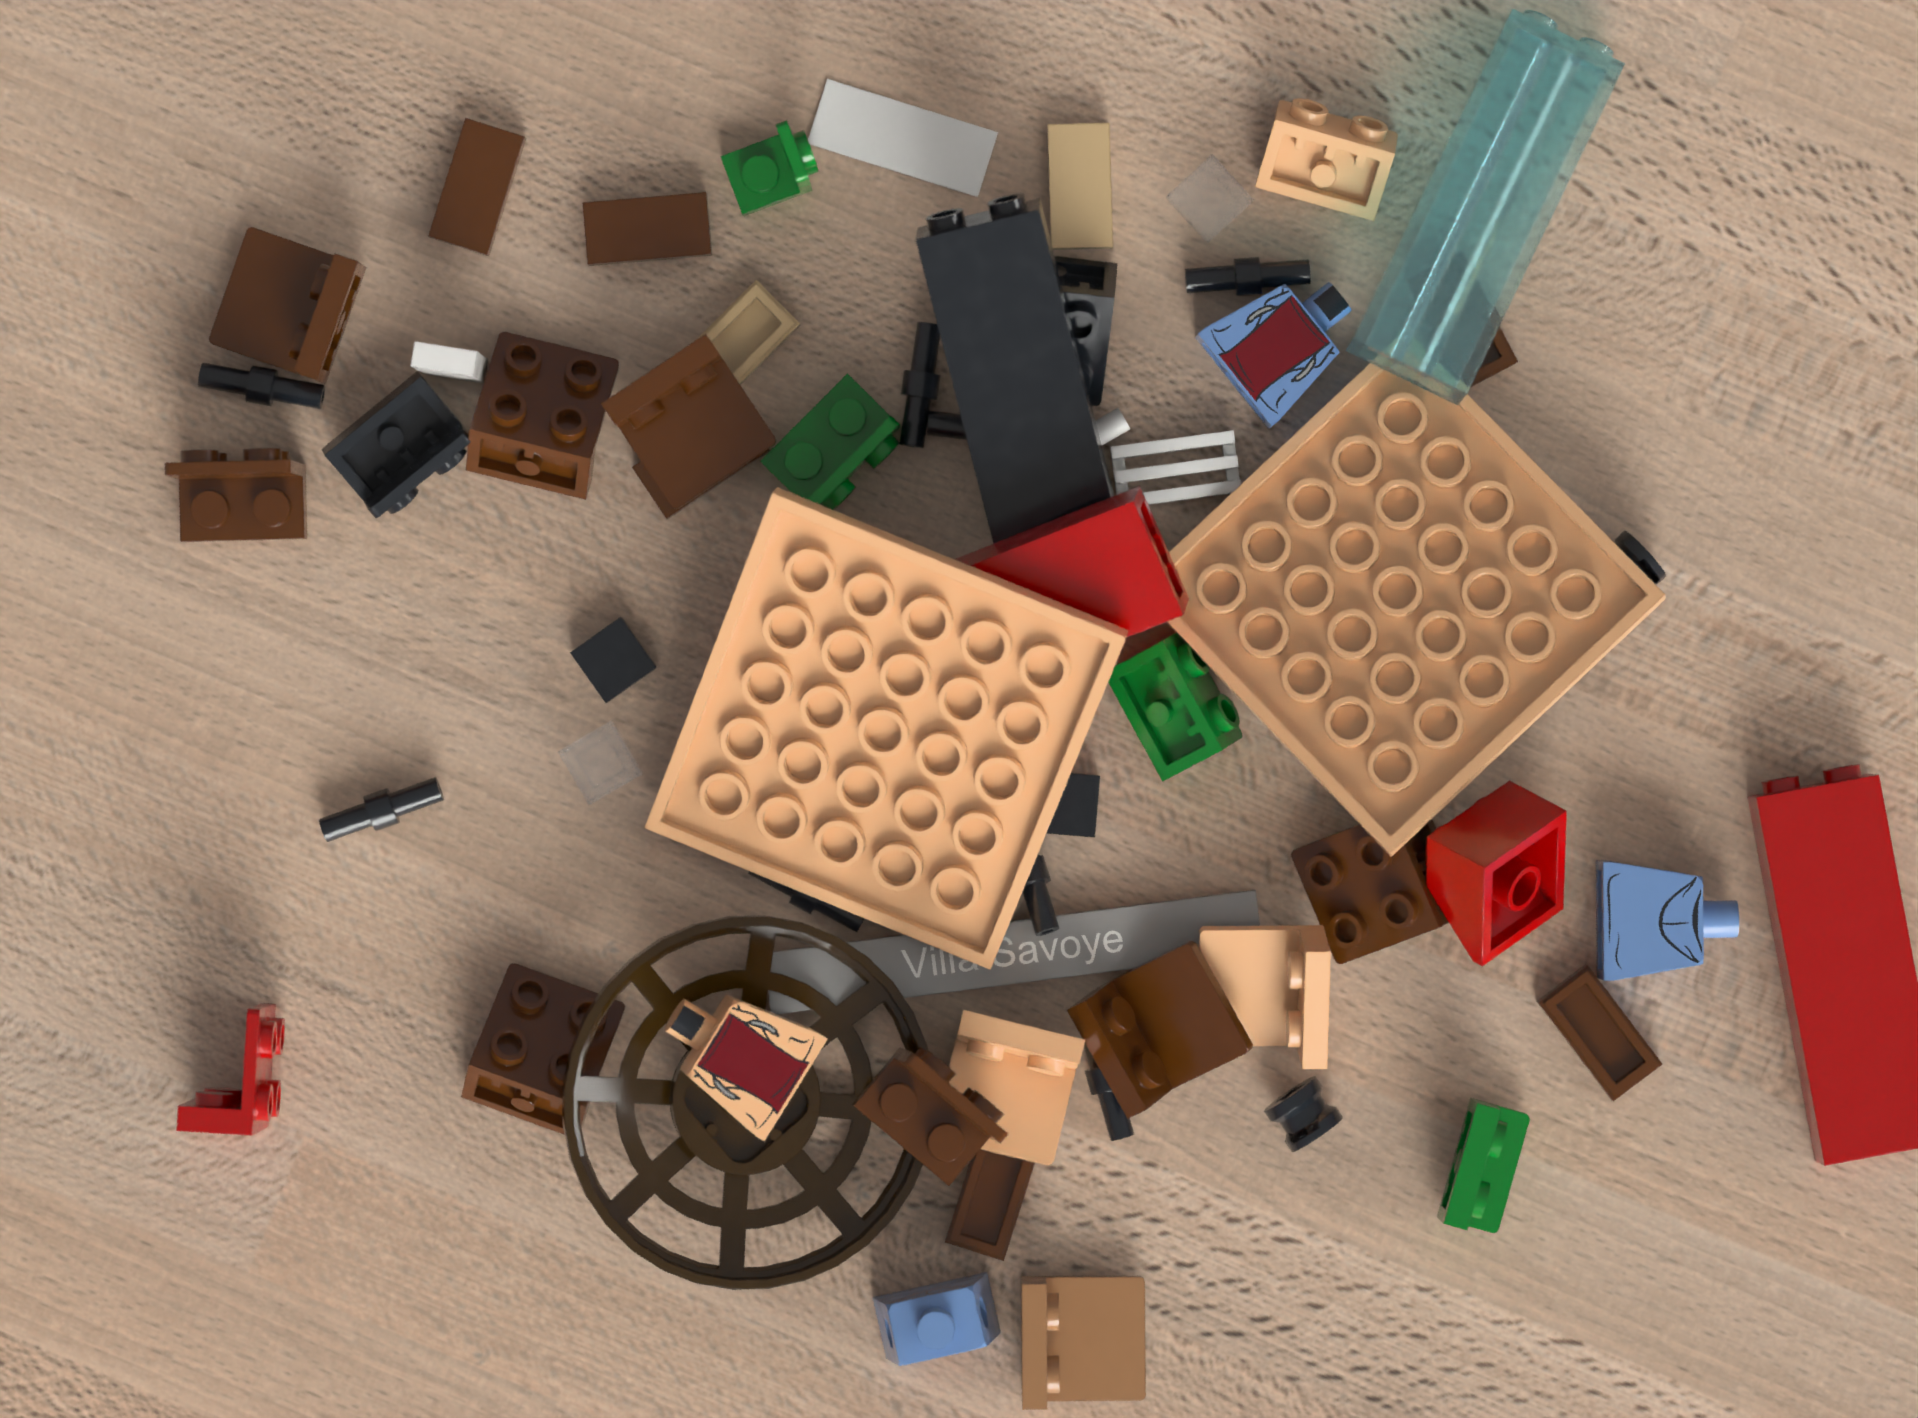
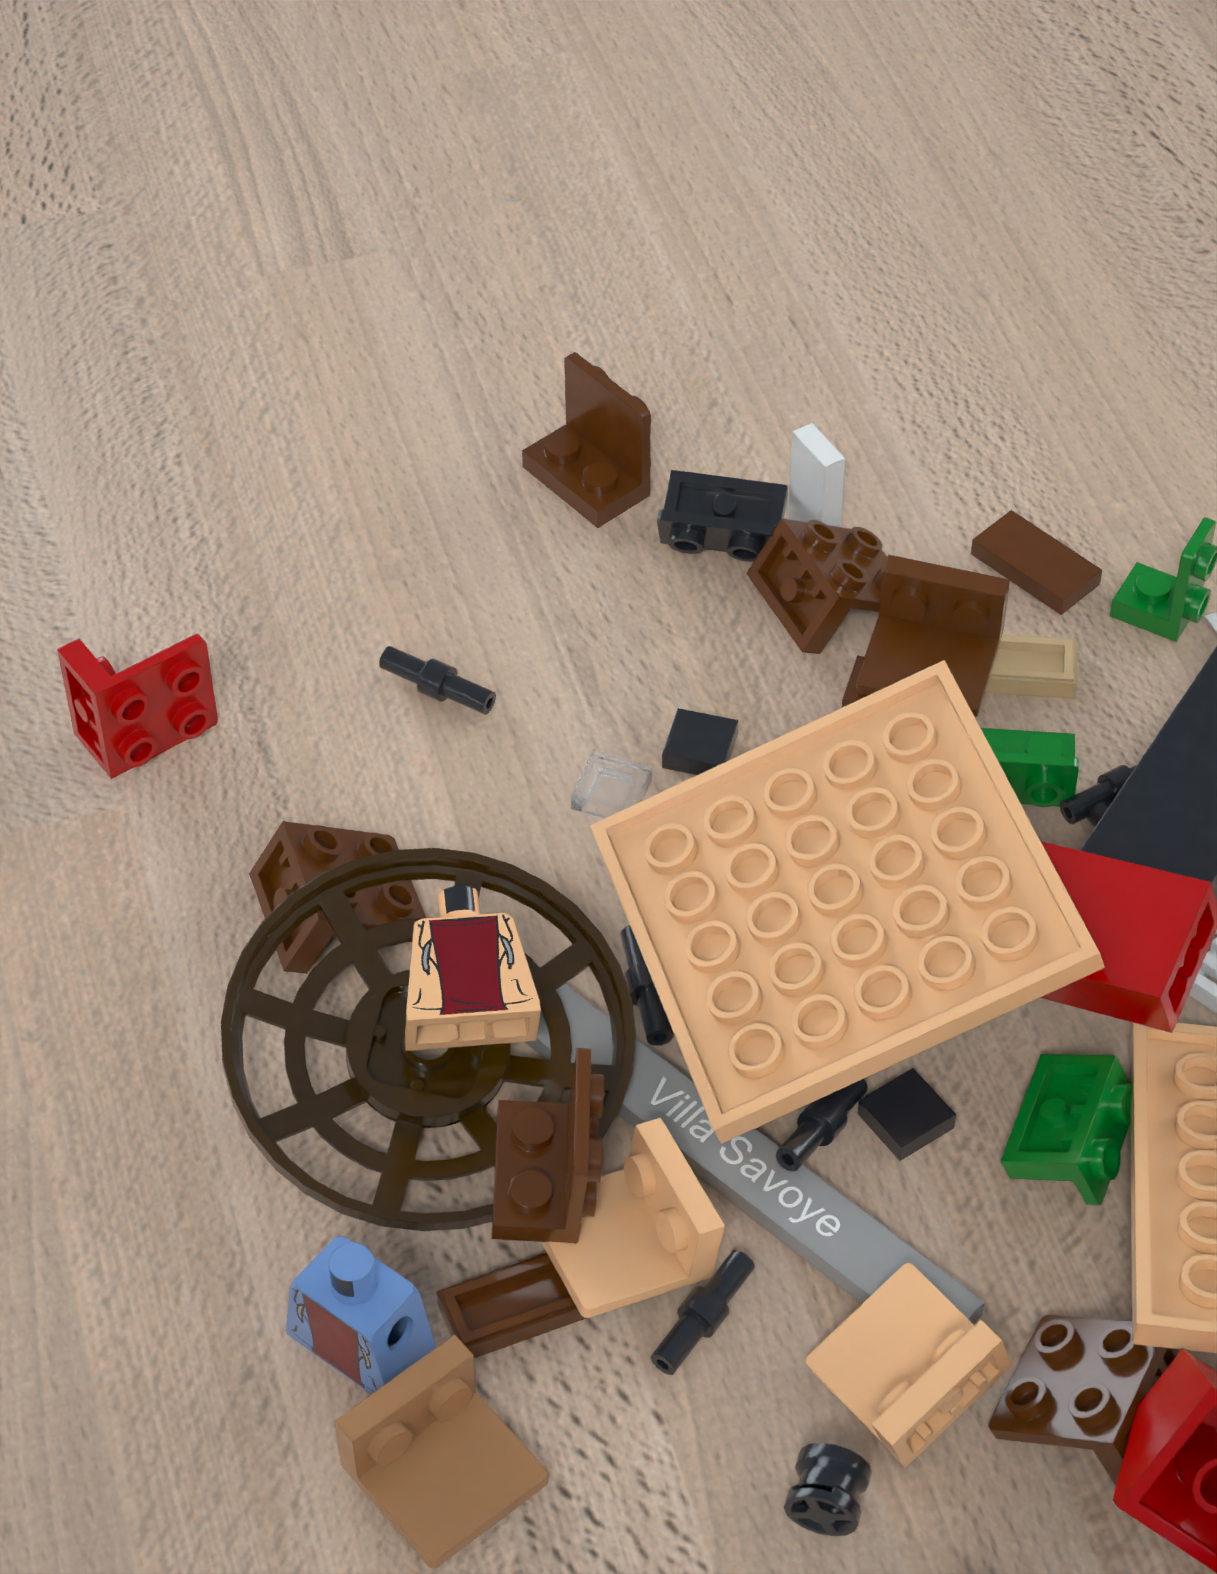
camera: 50 degrees right, 40 degrees down
(261, 385) = (681, 430): black bar -> none
(287, 304) = (756, 407): reddish brown bracket -> none
(477, 187) = (952, 456): reddish brown tile -> none
(1159, 1027) = (784, 1305): reddish brown bracket -> none

